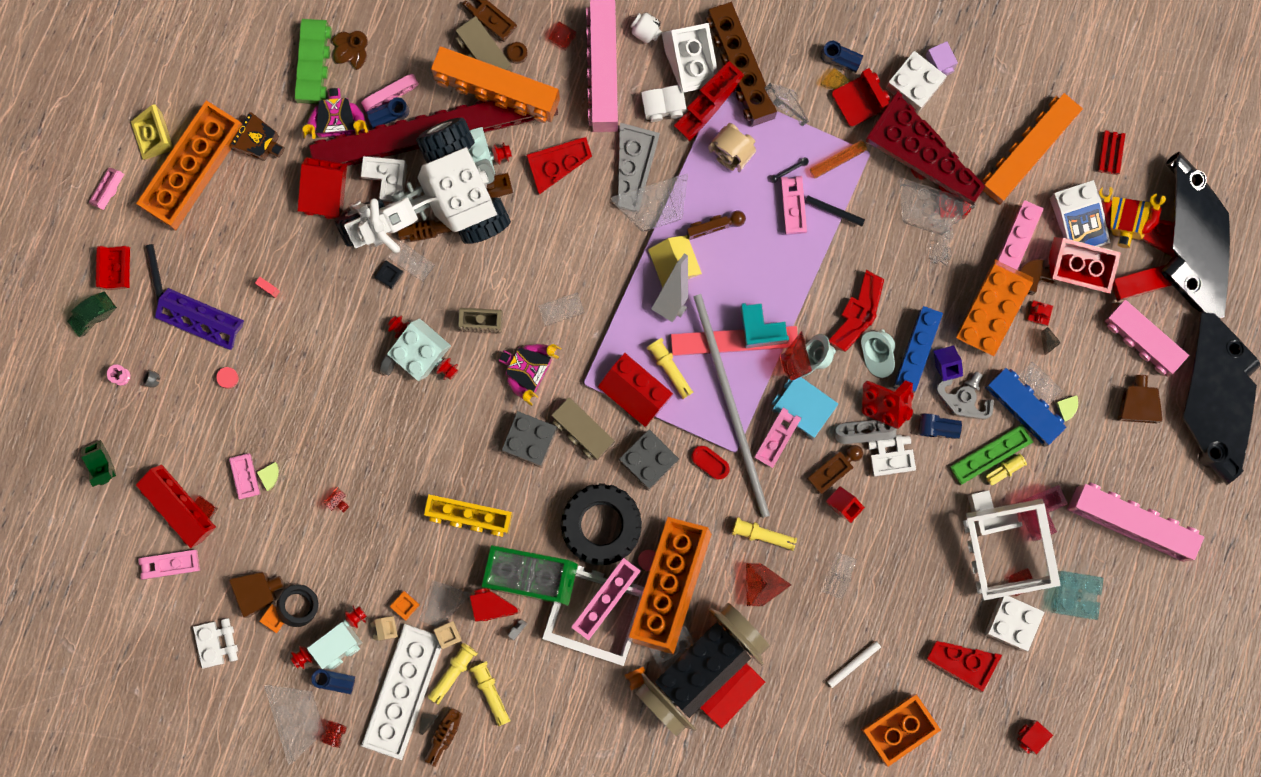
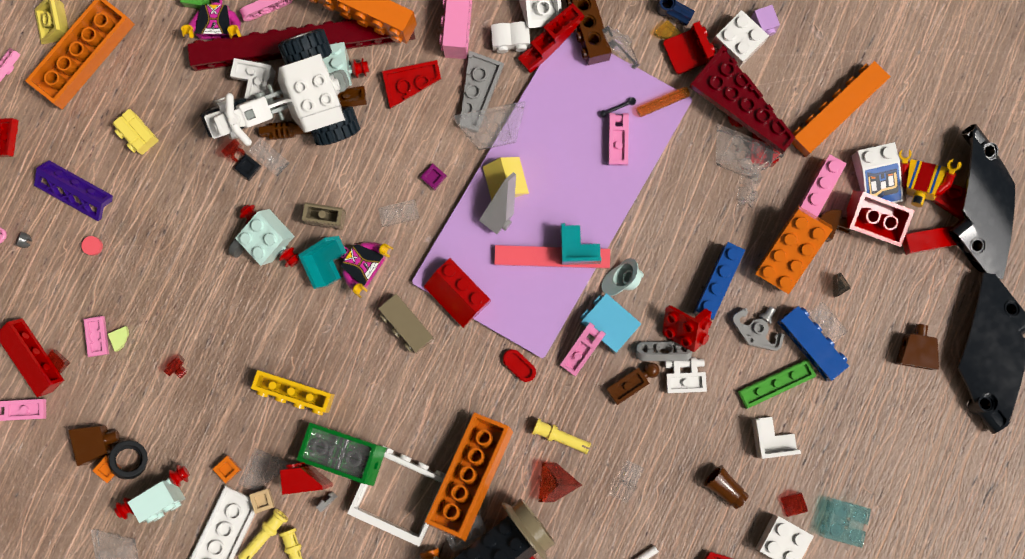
camera: 10 degrees right, 0 degrees up
(154, 271) = (38, 142): black bar -> none
(209, 643) = (46, 486): white plate -> none
(257, 139) = (142, 35): torso -> none
(261, 247) = (135, 131): none -> light yellow brick
(267, 287) = (136, 167): coral tile -> none
(322, 188) = (194, 82): red brick -> none
(336, 681) = (155, 533): dark blue piece -> none
(371, 256) = (232, 148): none -> clear red tile
(385, 114) = (261, 22): dark blue piece -> none
(385, 628) = (206, 488): tan tile -> none
(481, 370) = (320, 259): none -> teal panel
(529, 439) = (356, 328): dark grey brick -> none
(595, 265) = (433, 176): none -> magenta tile
(601, 495) = (386, 413): black tyre -> none
(606, 599) = (407, 483): bright pink brick -> none
(646, 559) = (450, 448): coral tile -> none
(649, 459) = (463, 357): dark grey brick -> none
(665, 360) = (487, 267): light yellow pin -> none
(716, 223) = (546, 149): reddish brown plate -> none
(731, 405) = (543, 316): light grey piece -> none
(733, 147) = (568, 81): tan brick -> none
(796, 359) = (606, 279): clear red slope -> none
(834, 211) = (656, 148): black bar -> none
(841, 501) = (635, 414): red brick -> none
(859, 313) = (668, 242): red plate -> none
(878, 352) = (682, 280): light aqua piece -> none
(934, 426) = (727, 353): dark blue piece -> none
(947, 571) = (726, 487): none -> reddish brown plant
(948, 363) = (745, 296): dark purple brick -> none
(1006, 469) = (789, 399): light yellow axle -> none
(1021, 586) = (793, 510): white window -> none
(1040, 313) = (833, 258): red brick -> none
(1053, 499) = (814, 441): clear pink brick -> none
(1068, 407) = (851, 347): yellowish green tile -> none
(1114, 135) = (916, 105): red tile -> none
(1135, 522) = (906, 461): bright pink brick -> none
(1146, 338) = (929, 291): bright pink brick -> none

